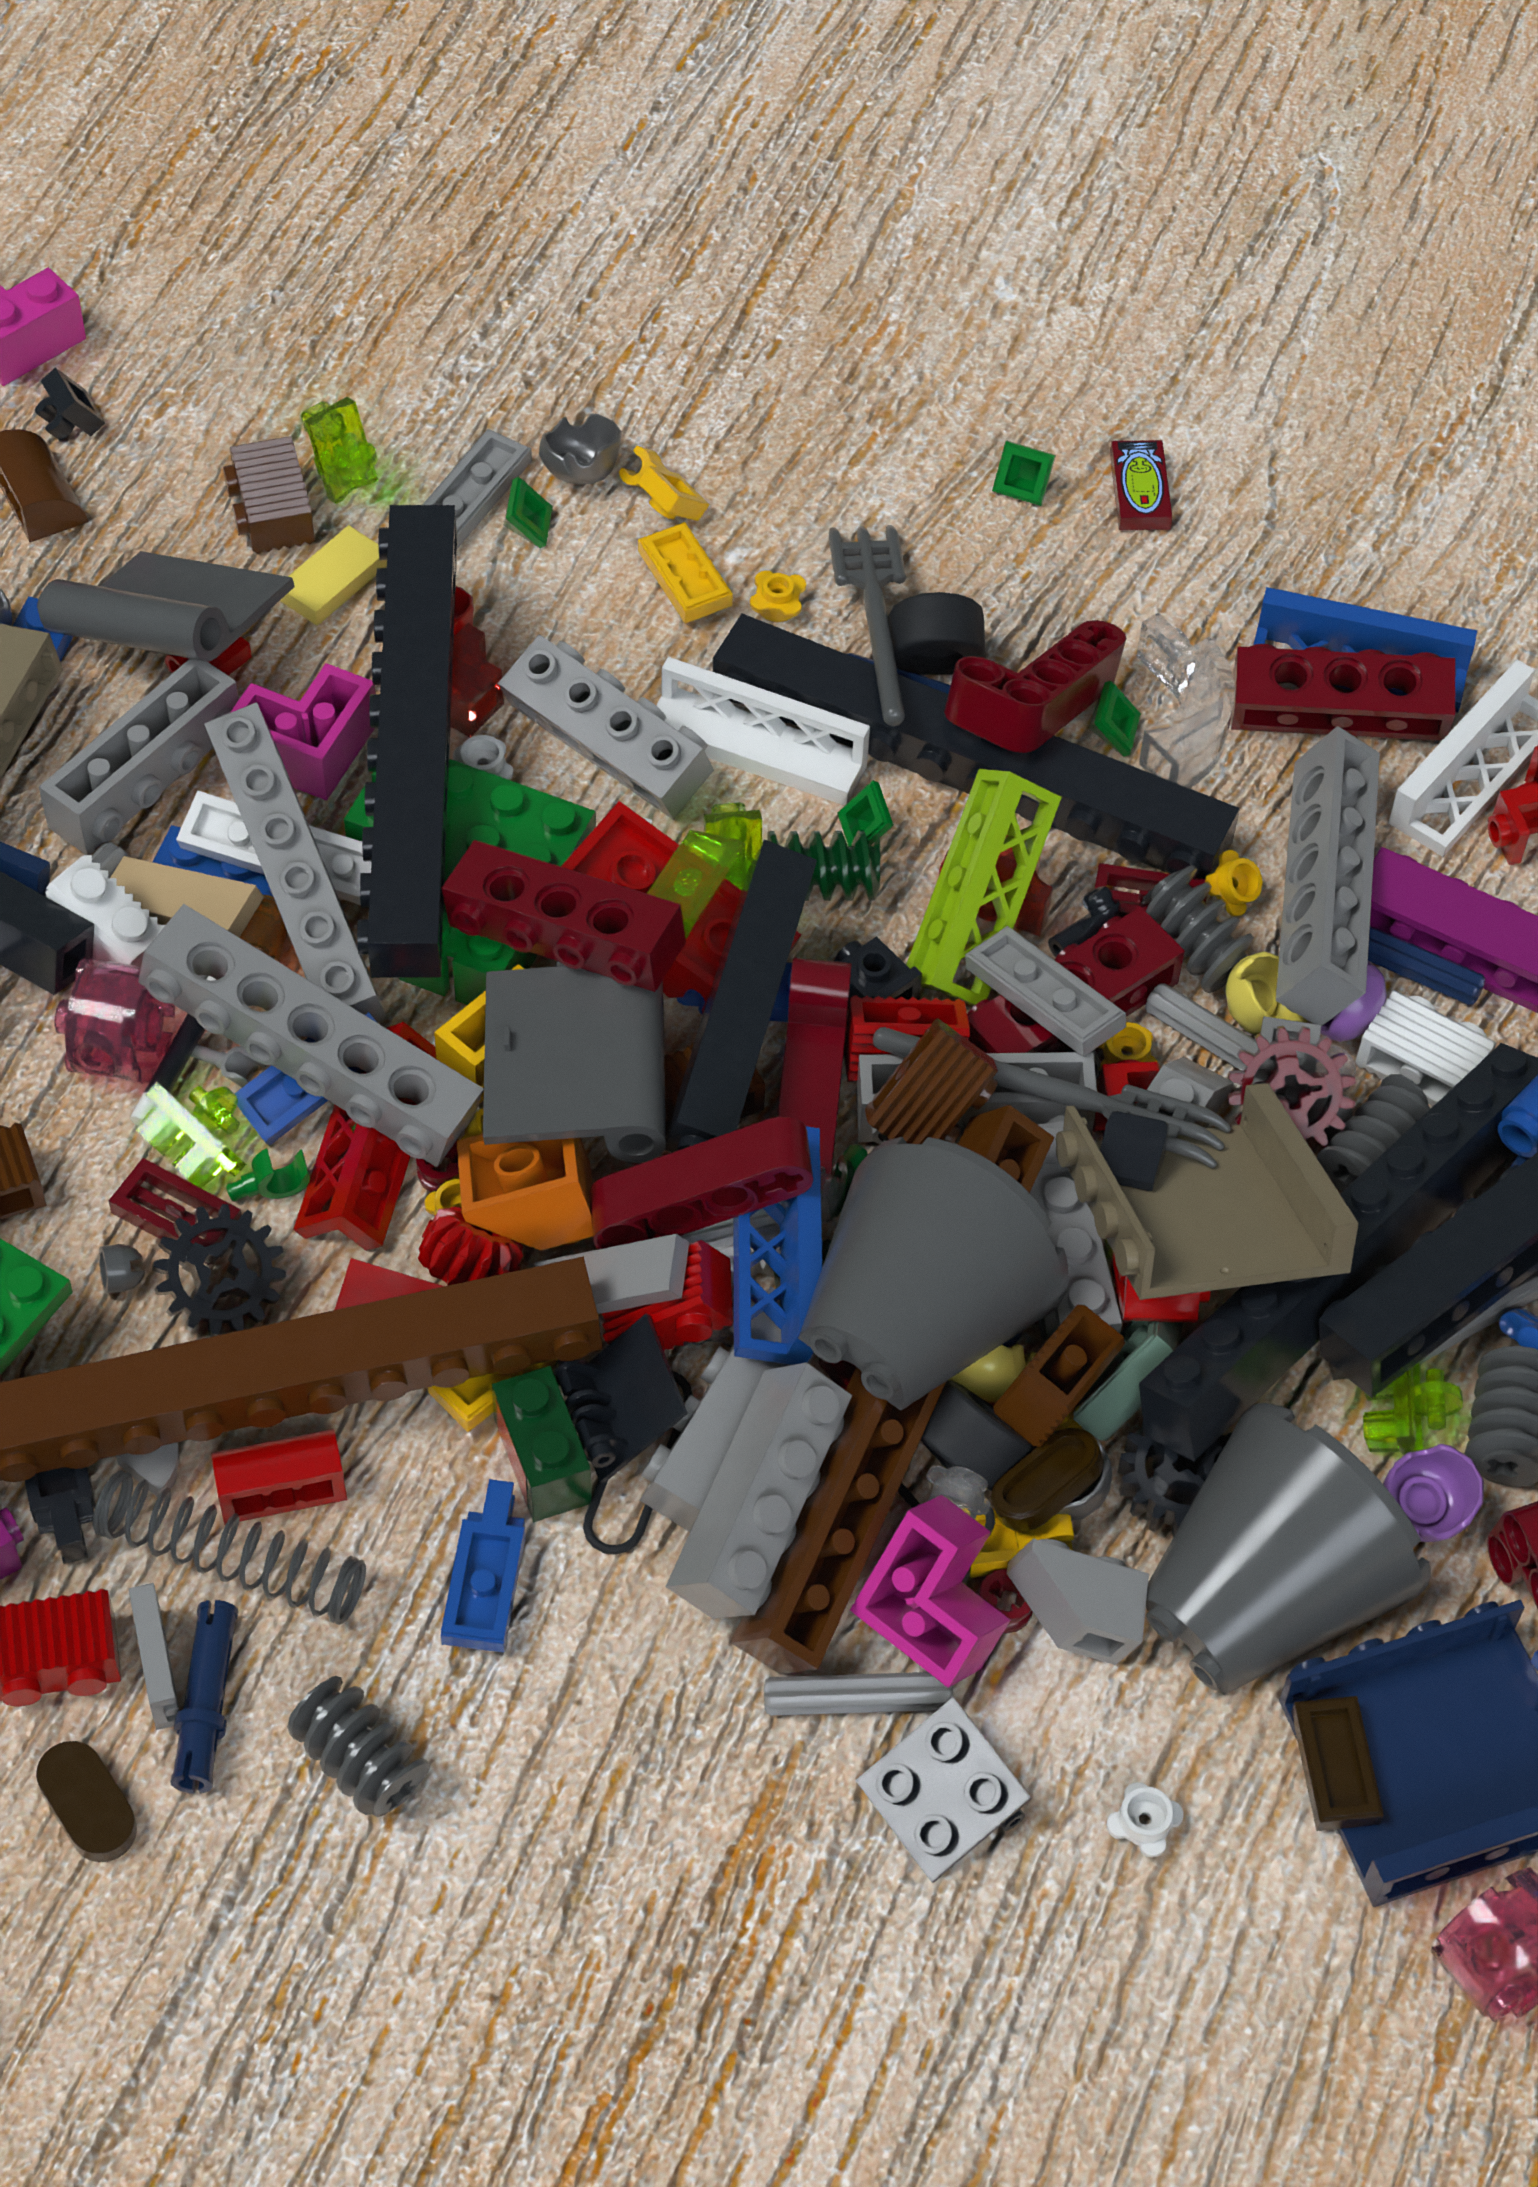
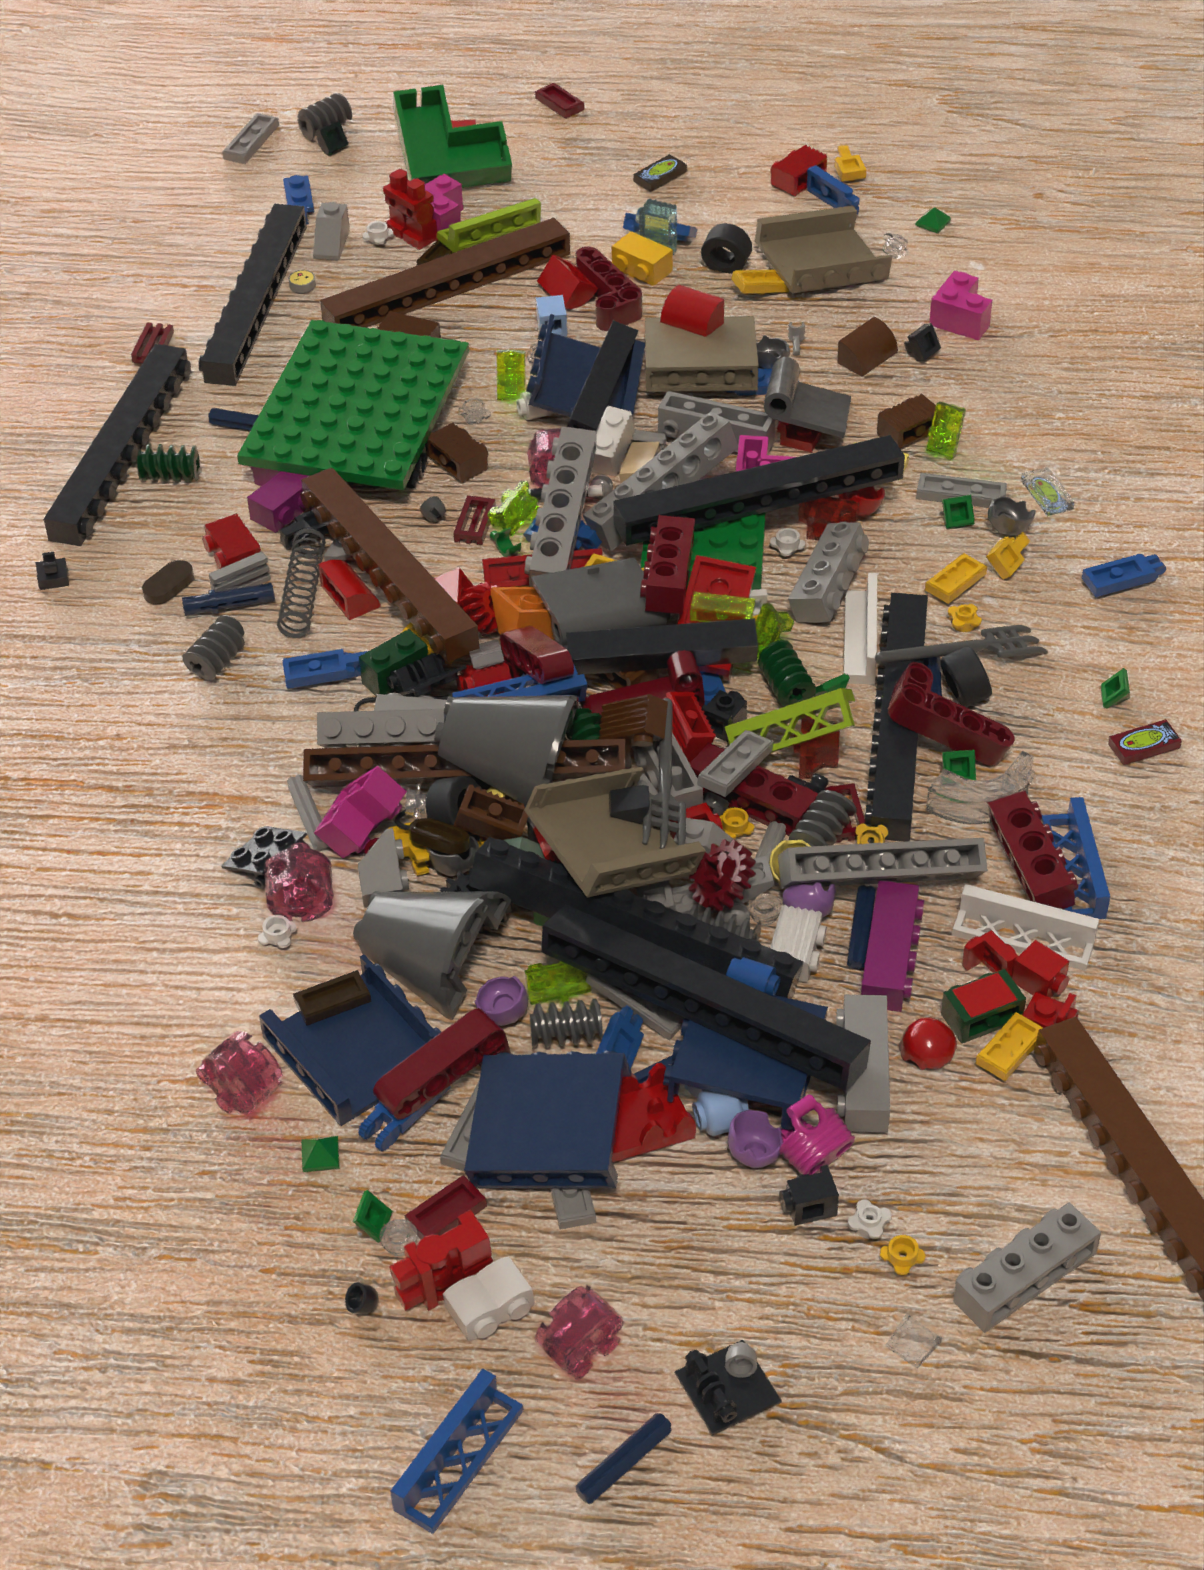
camera: 75 degrees right, 10 degrees down
(192, 1259) = (440, 535): black gear -> none
(524, 389) = (1047, 491): none -> clear tile
(774, 373) = (1122, 574): none -> blue hinge
(1086, 1774) = (299, 883): none -> clear pink brick

